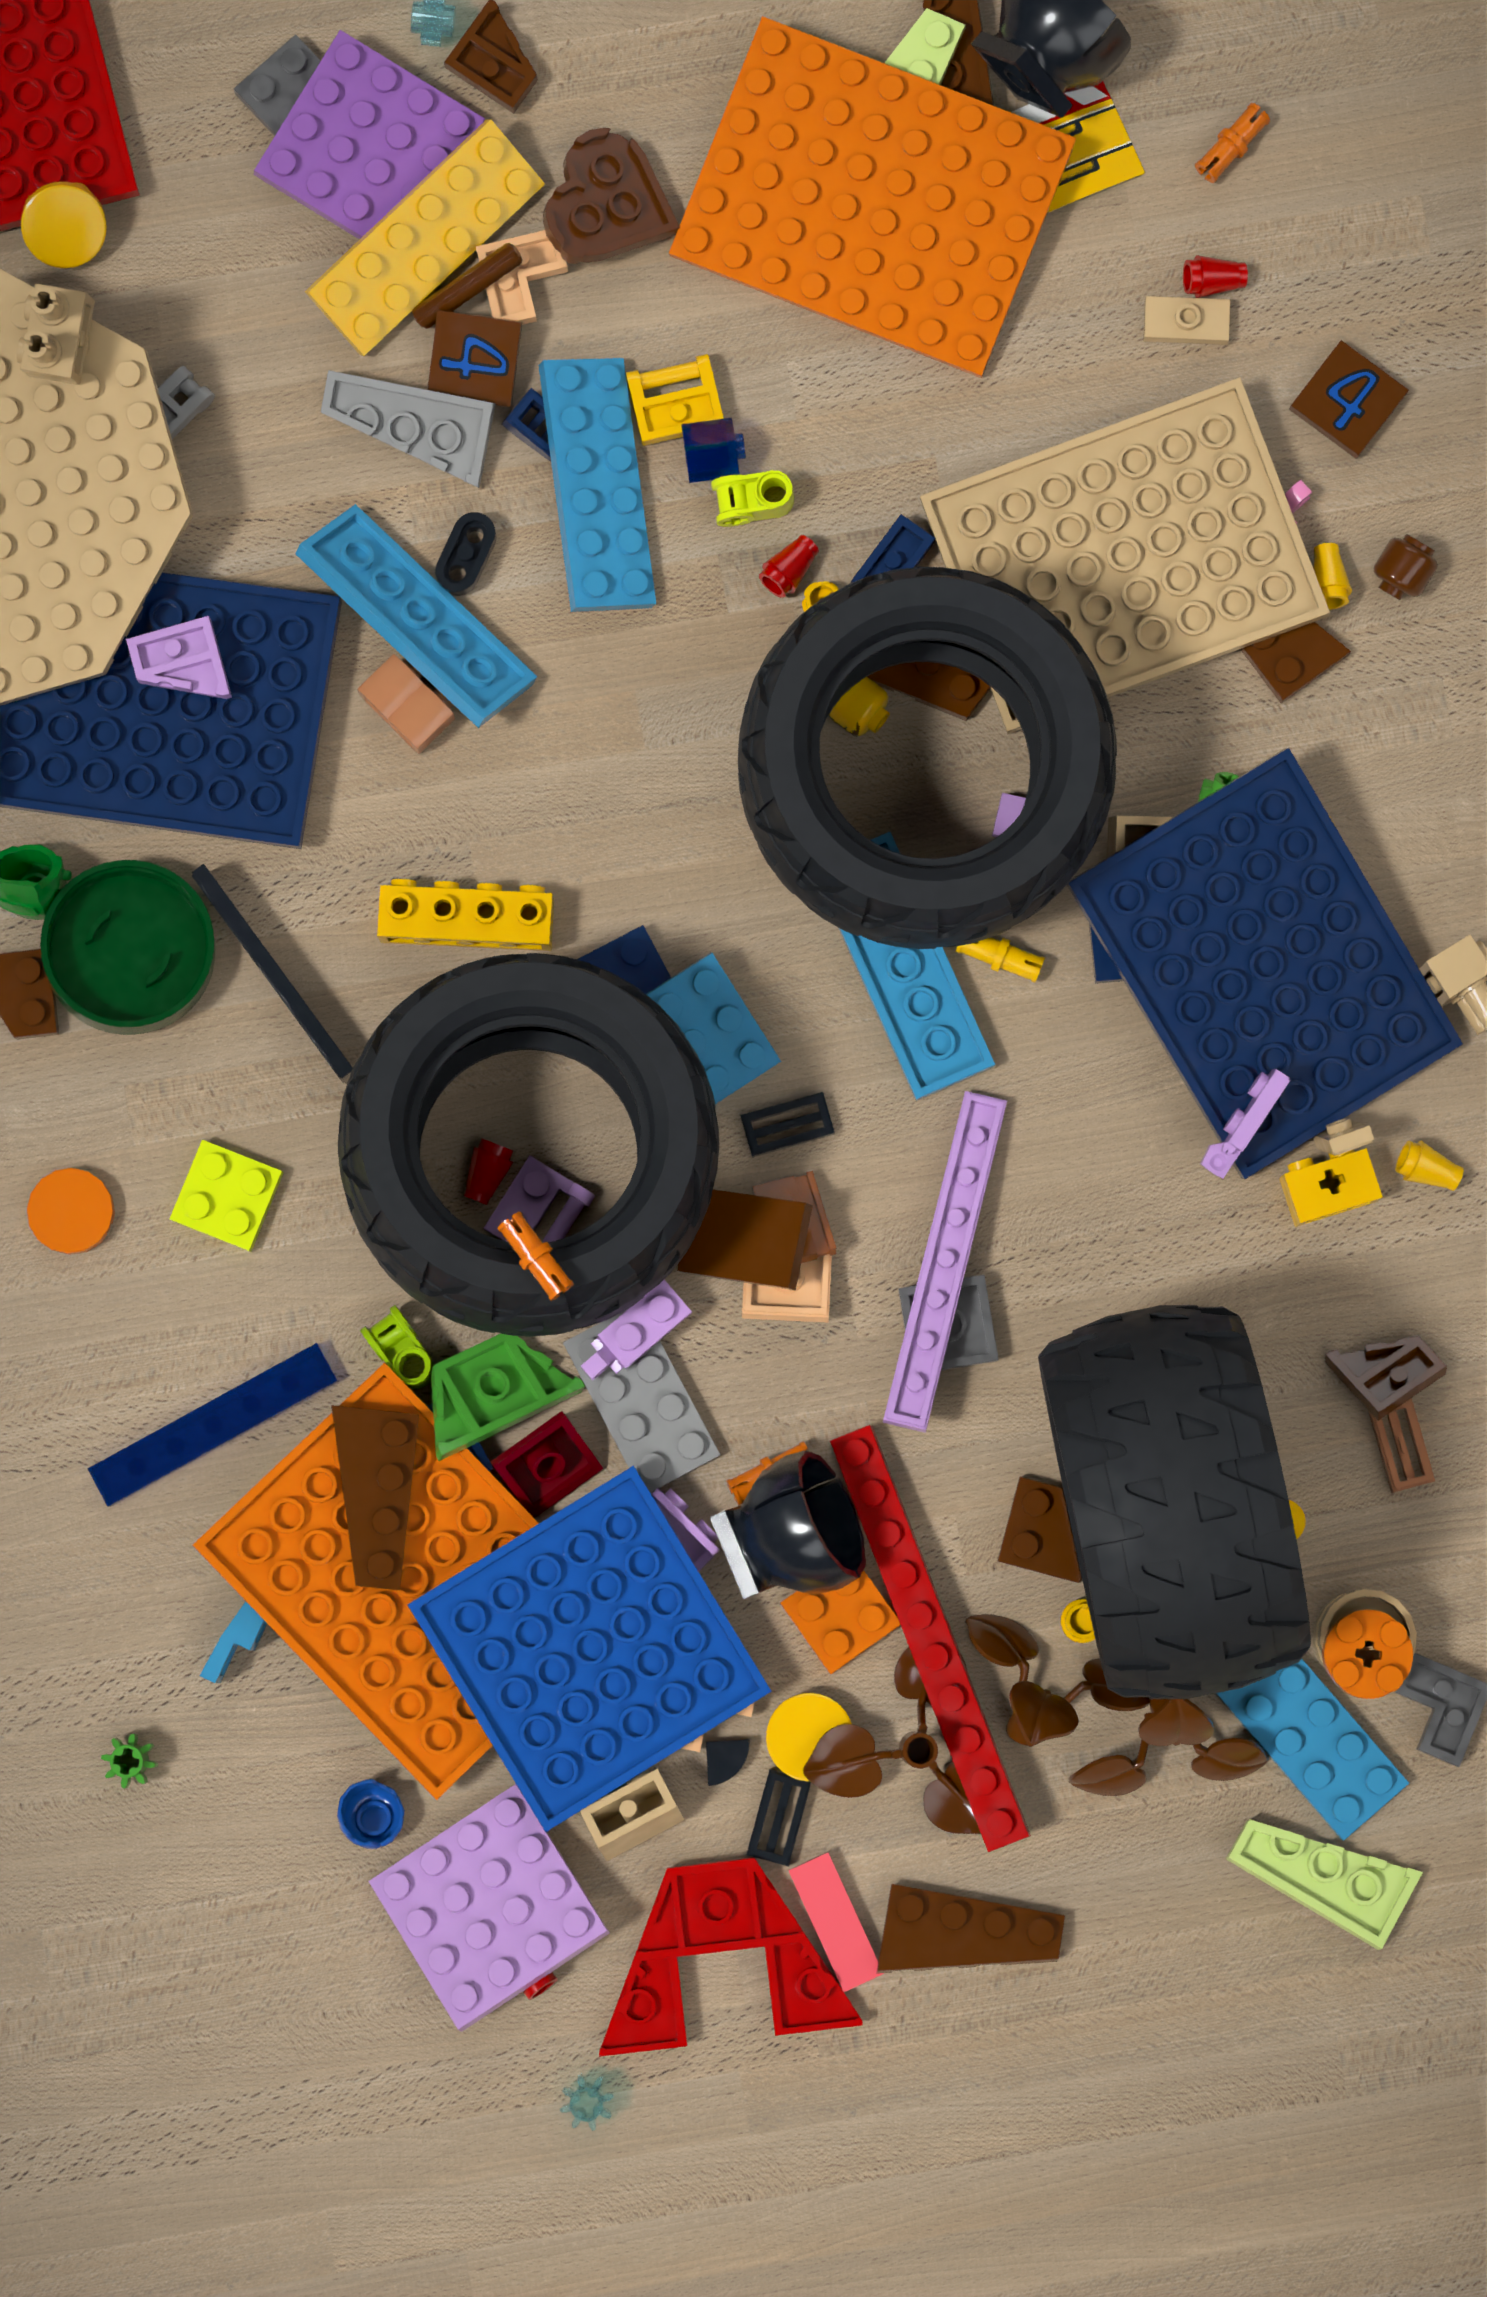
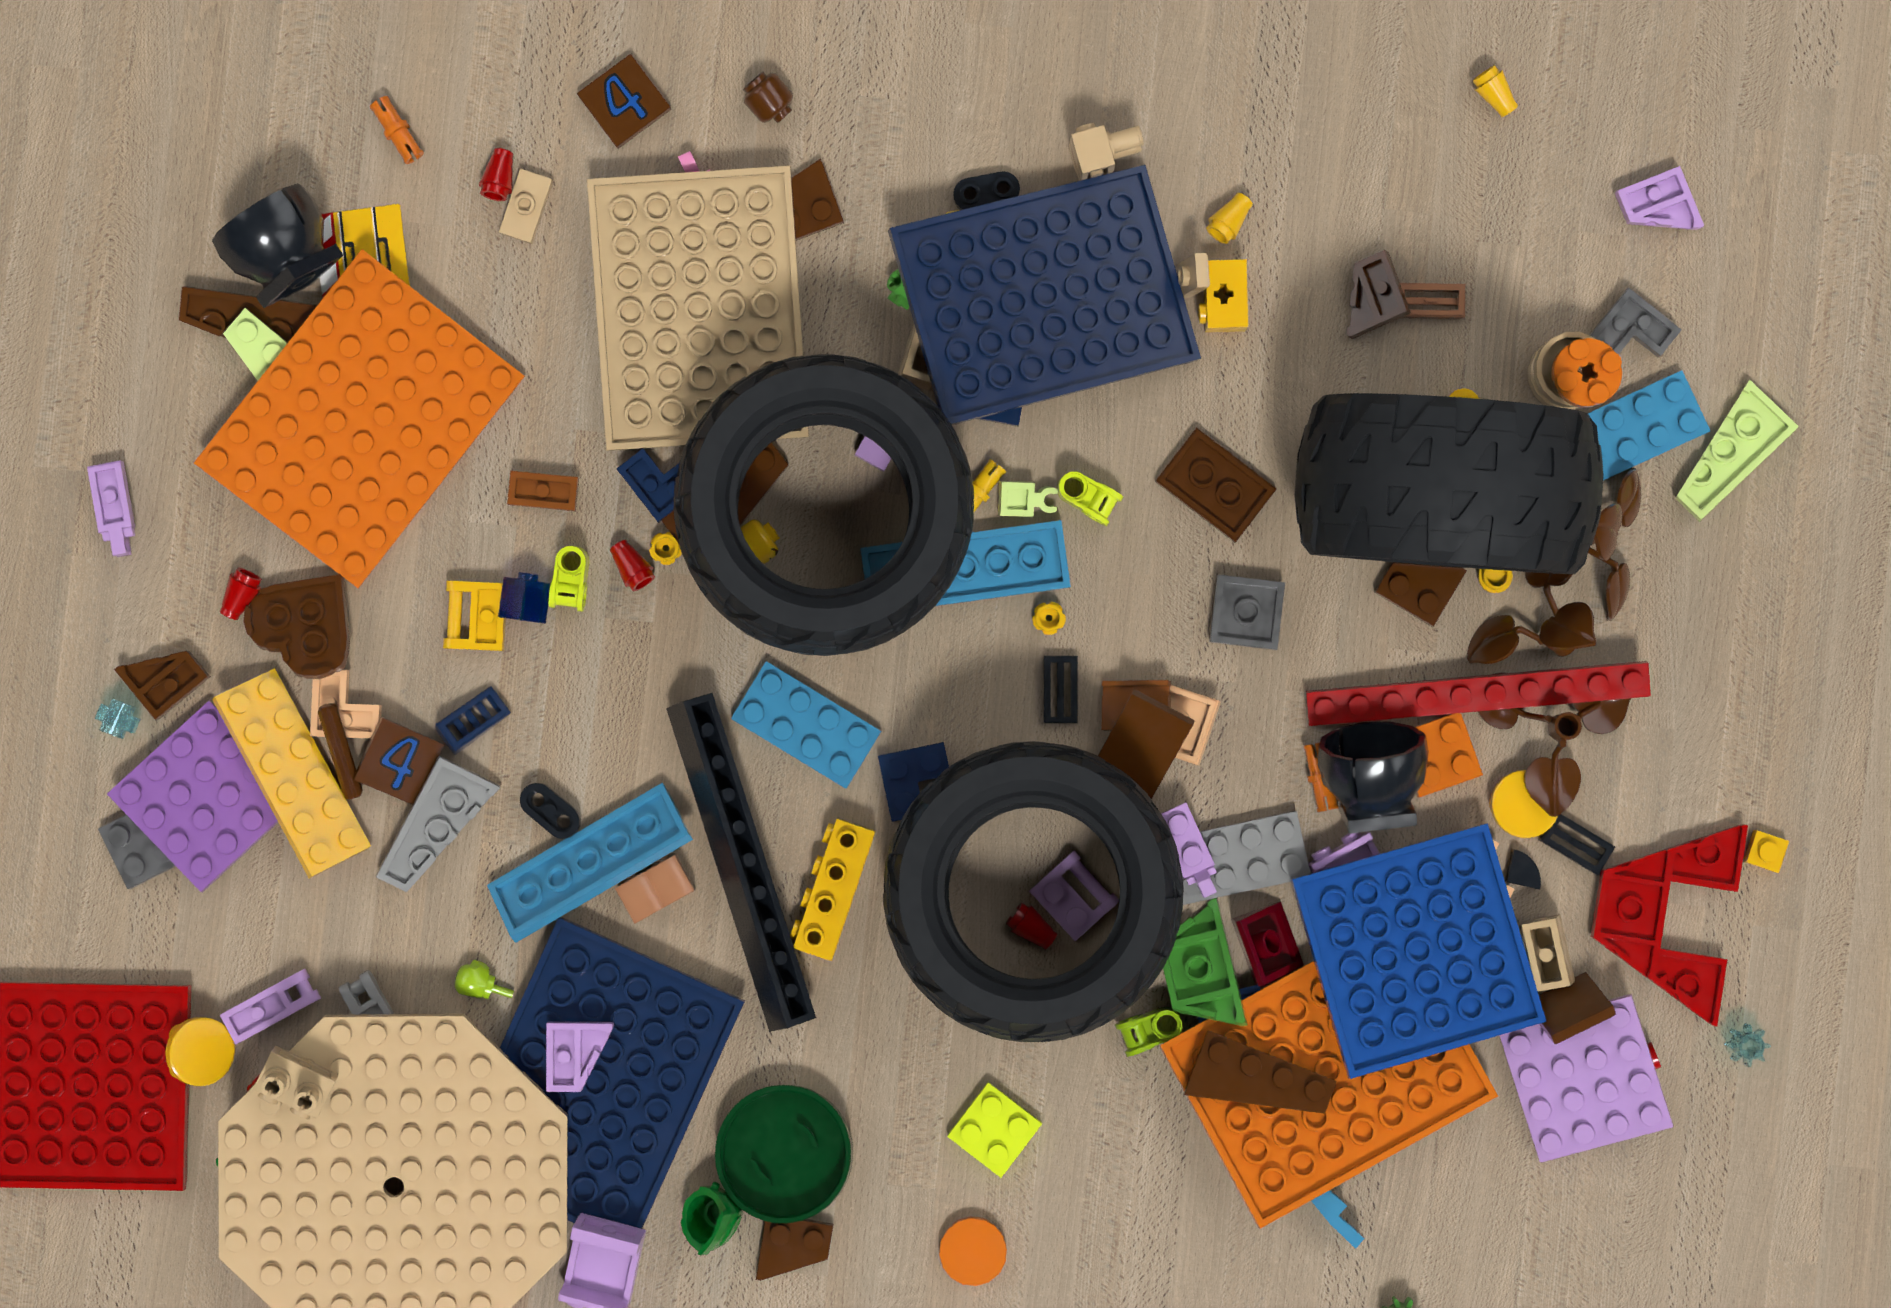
camera: 75 degrees left, 5 degrees up
(138, 292) = (268, 1007): none -> lavender plate
(212, 1425) = (1166, 1186): clear blue tile -> none
(235, 525) = (476, 982): none -> lime piece
(273, 973) = (836, 1047): black tile -> none
(370, 1814) = (1492, 1147): blue hair -> none
(467, 794) = (741, 862): none -> black brick
(535, 1256) = (1134, 912): orange pin -> none
(571, 1863) = (1574, 1008): none -> reddish brown tile
(597, 484) = (525, 694): dark azure plate -> none
(624, 117) = (239, 593): none -> red cone
(656, 829) = (806, 725): none -> dark azure plate
(716, 1025) = (971, 725): dark azure plate -> none
(835, 1921) = (1665, 823): coral tile -> none
(836, 2060) = (1766, 851): none -> yellow plate
(849, 436) = (543, 491): none -> dark orange plate
(868, 1096) = (1048, 627): none -> yellow plate
(945, 1262) = (1200, 600): lavender tile -> none
(949, 1931) = (1698, 737): reddish brown wing -> none
(1007, 1007) = (1020, 498): none -> yellowish green plate
(1033, 1092) = (1090, 497): none -> neon yellow piece
(1094, 1243) = (1215, 485): none -> reddish brown tile
(1244, 1124) = (1163, 345): lavender hinge -> none
(1331, 575) = (757, 155): yellow cone -> none
(1374, 860) = (986, 189): none -> black plate

